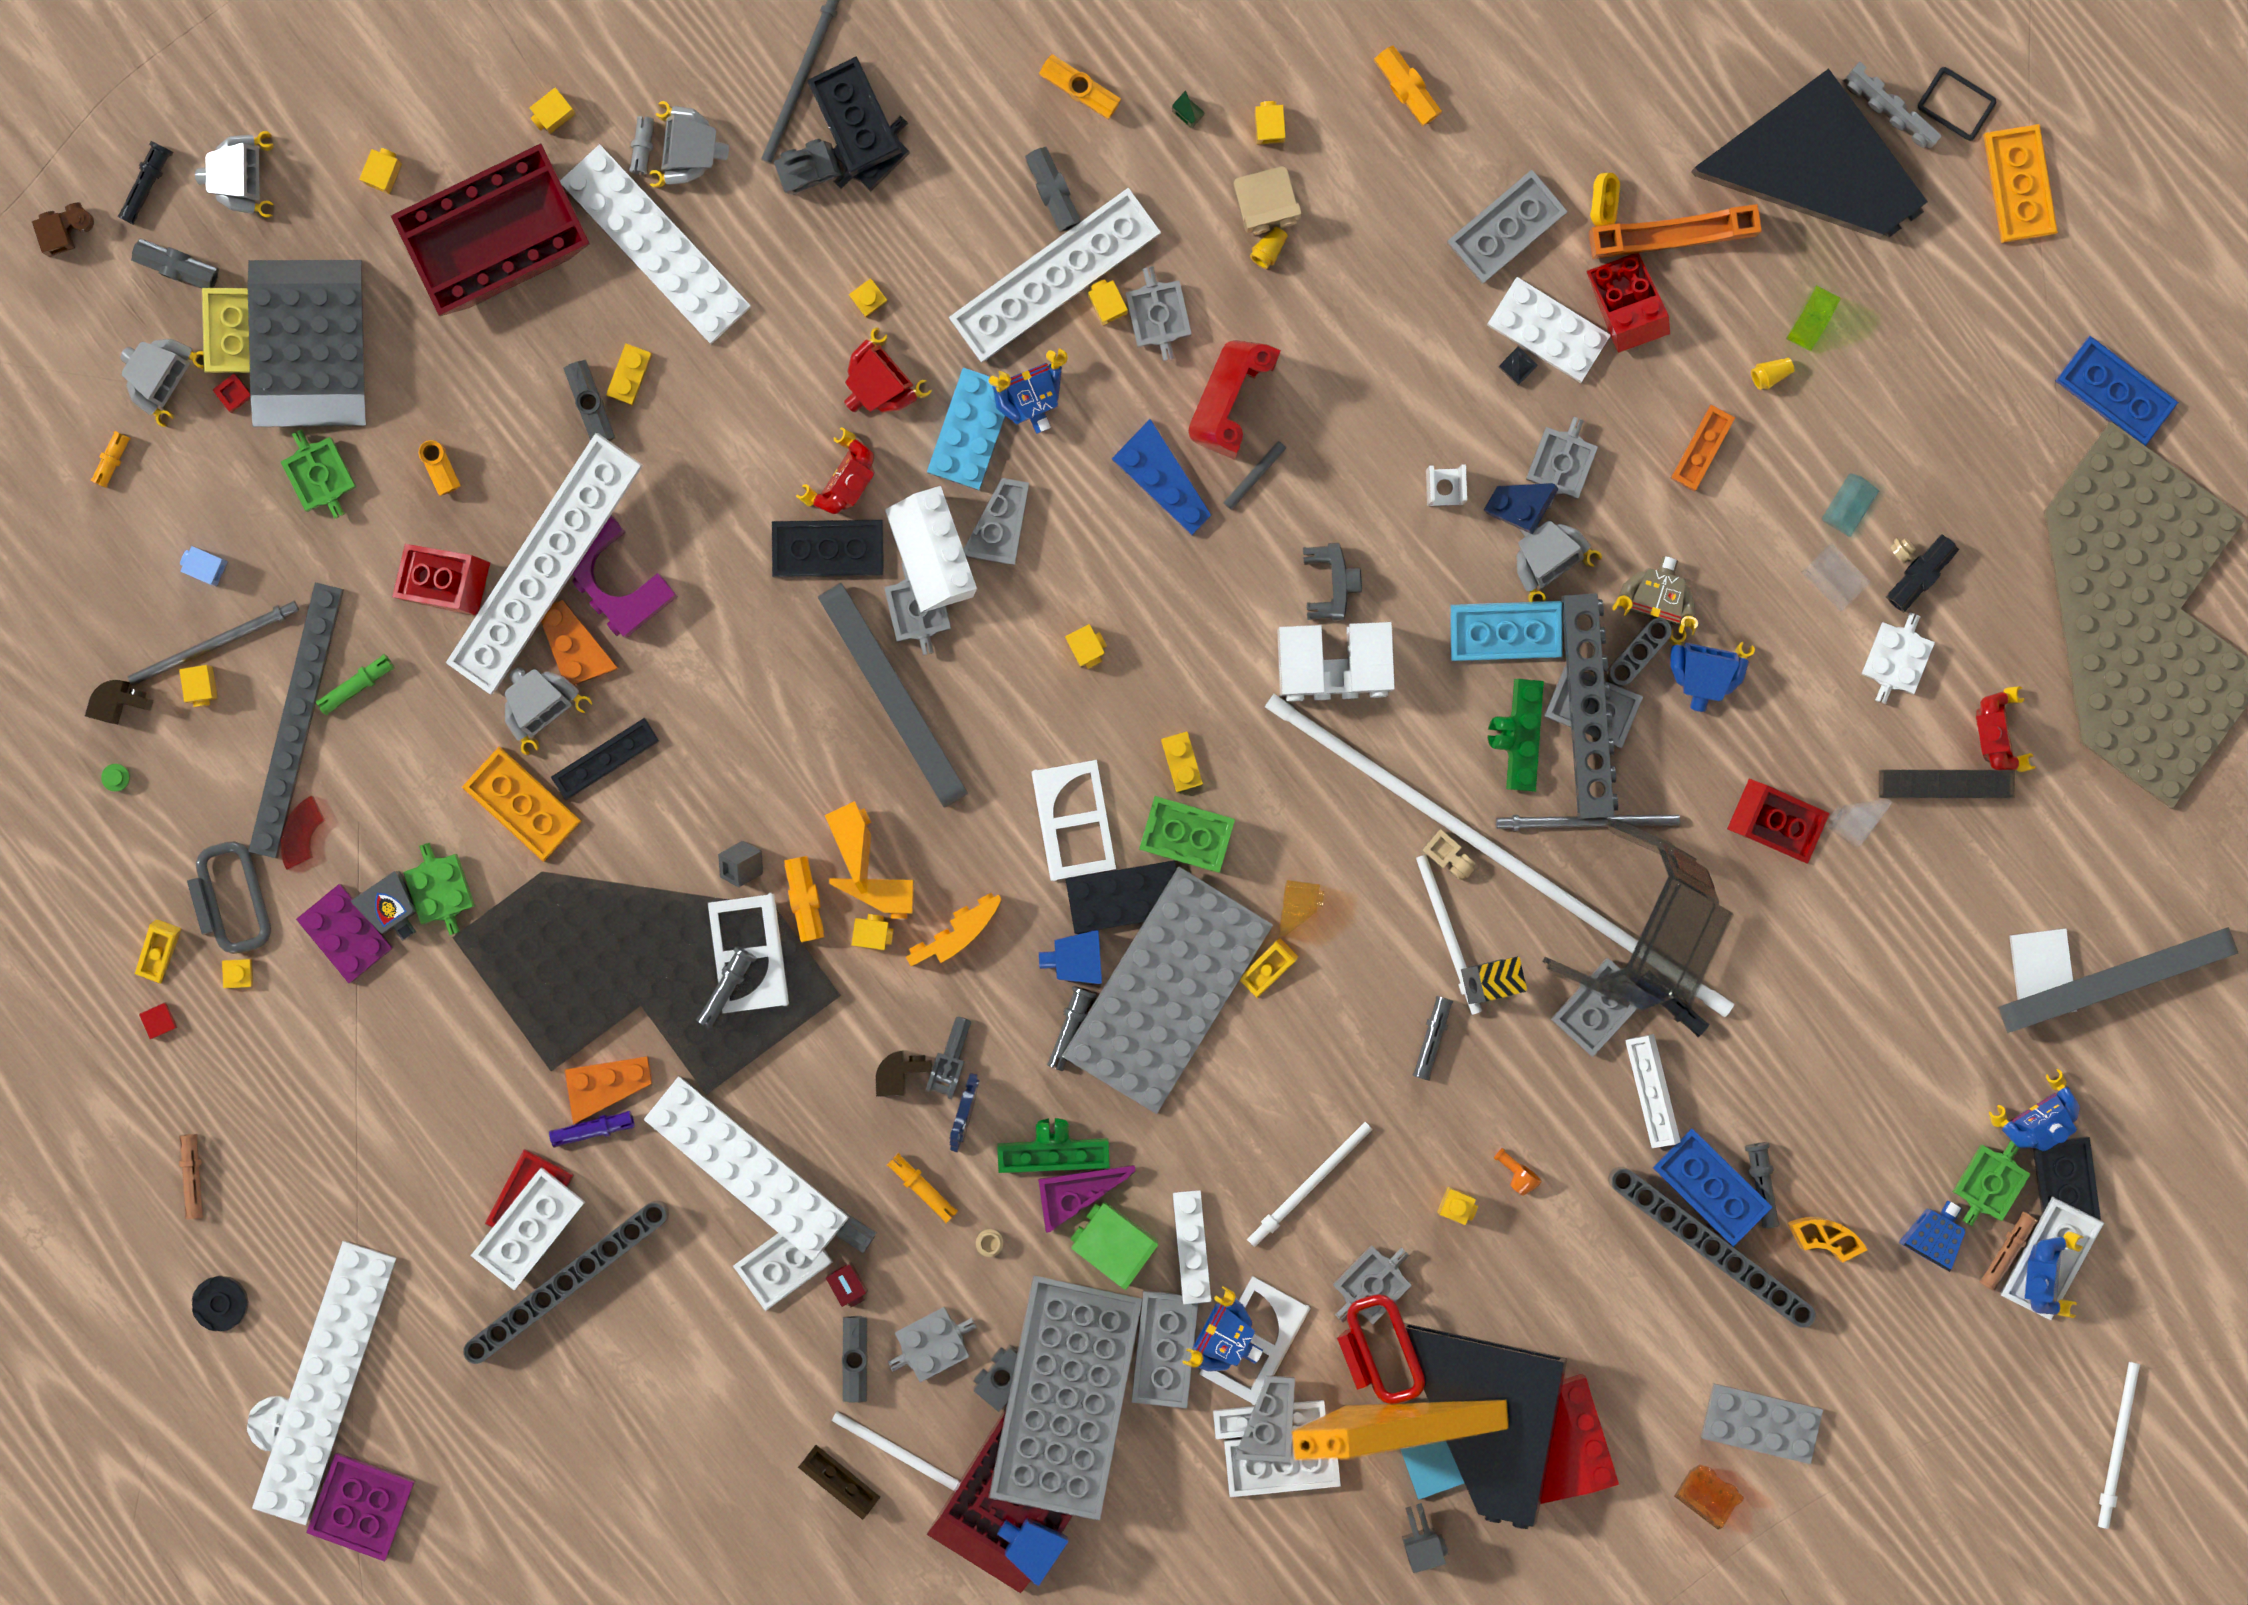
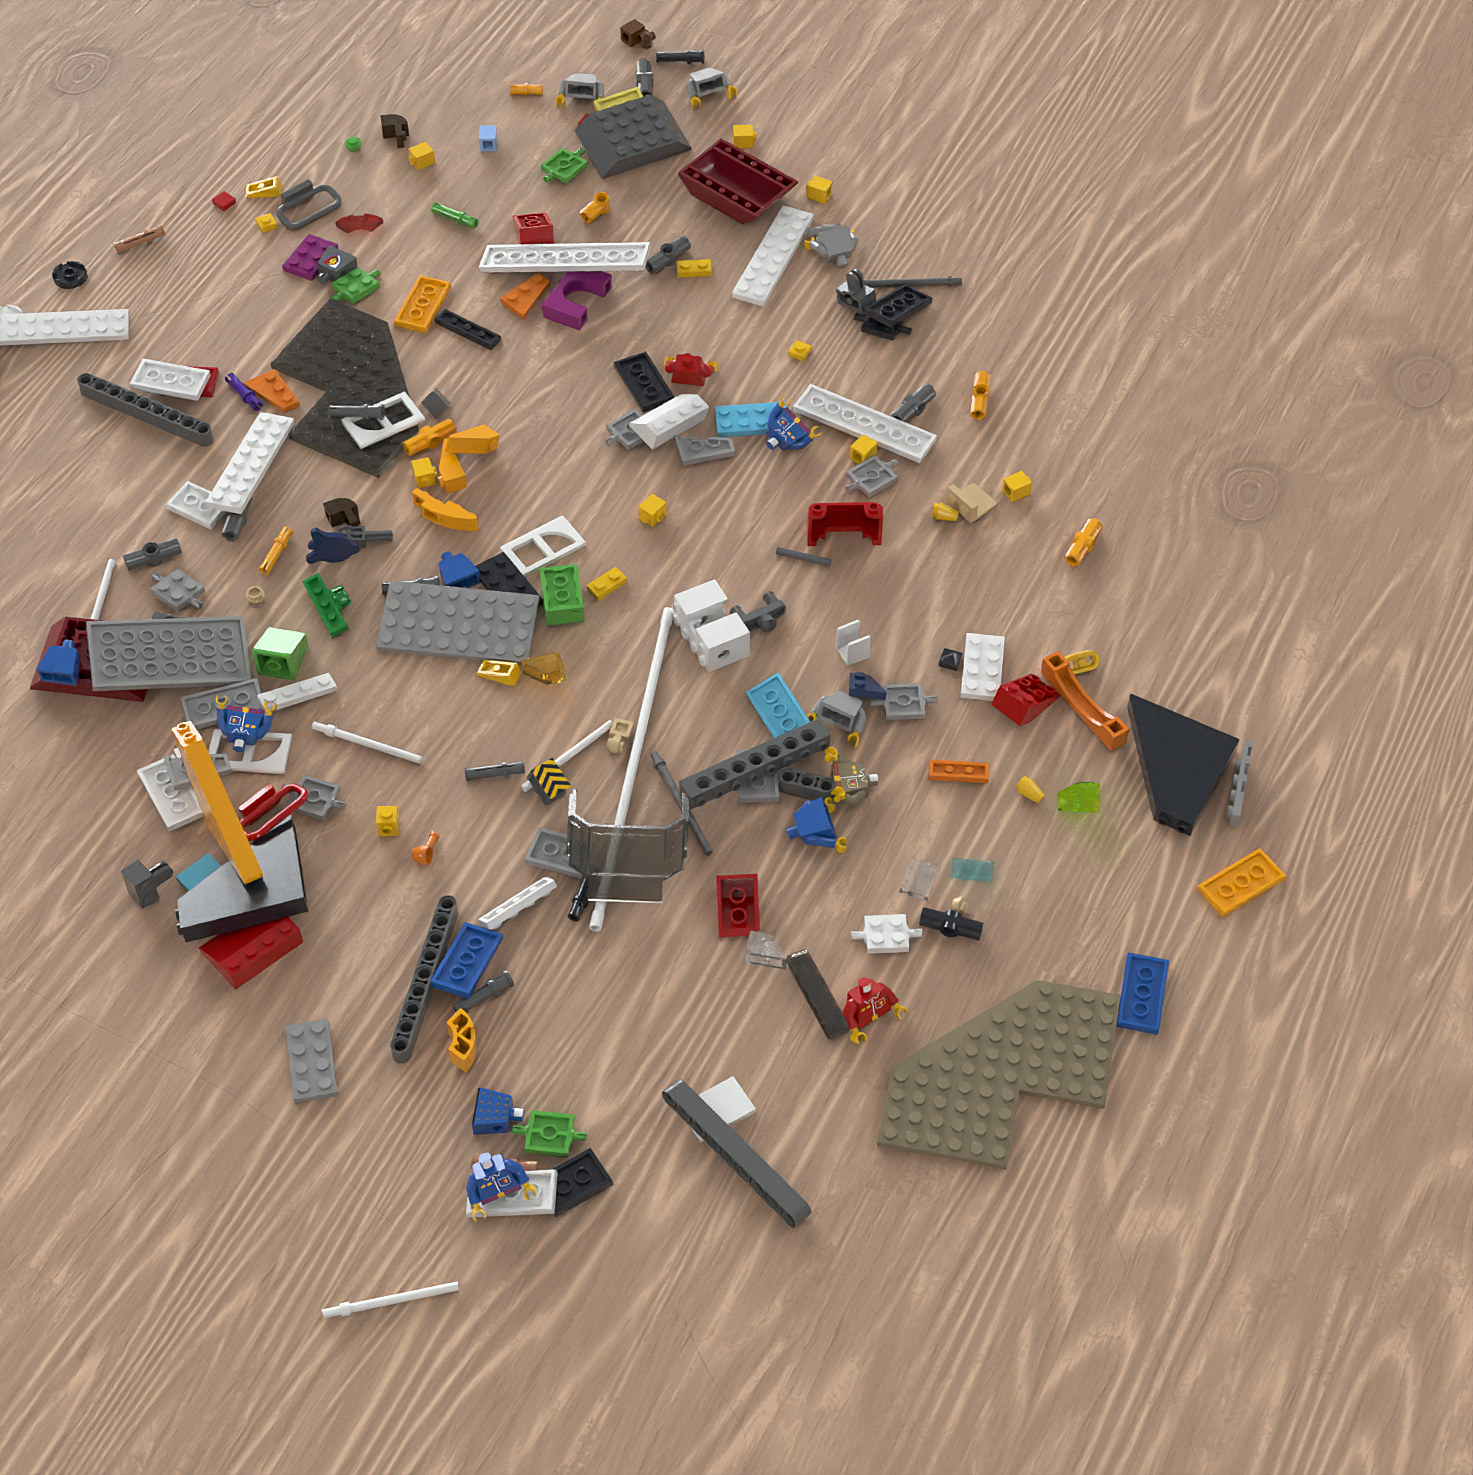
camera: 70 degrees right, 35 degrees down
(278, 614) = (478, 175): flat silver bar -> none
(296, 720) = (424, 200): dark grey plate -> none
(537, 701) = (483, 284): light grey torso -> none
(839, 1482) = (69, 573): dark brown plate -> none
(847, 1285) = (198, 534): dark red brick -> none
(878, 380) = (754, 364): red torso -> none
(892, 695) = (572, 436): dark grey beam -> none
(1070, 1193) = (304, 620): magenta wing -> none
(1161, 477) = (775, 513): blue wing -> none
(1187, 110) = (1000, 447): dark green slope -> none
(1507, 226) = (1031, 620): light grey plate -> none
(1521, 734) = (717, 744): green plate -> none
(1708, 1495) = (244, 1043): clear orange bracket -> none
(1970, 85) = (1284, 836): black piece -> none
(2045, 1122) = (612, 1145): blue torso -> none

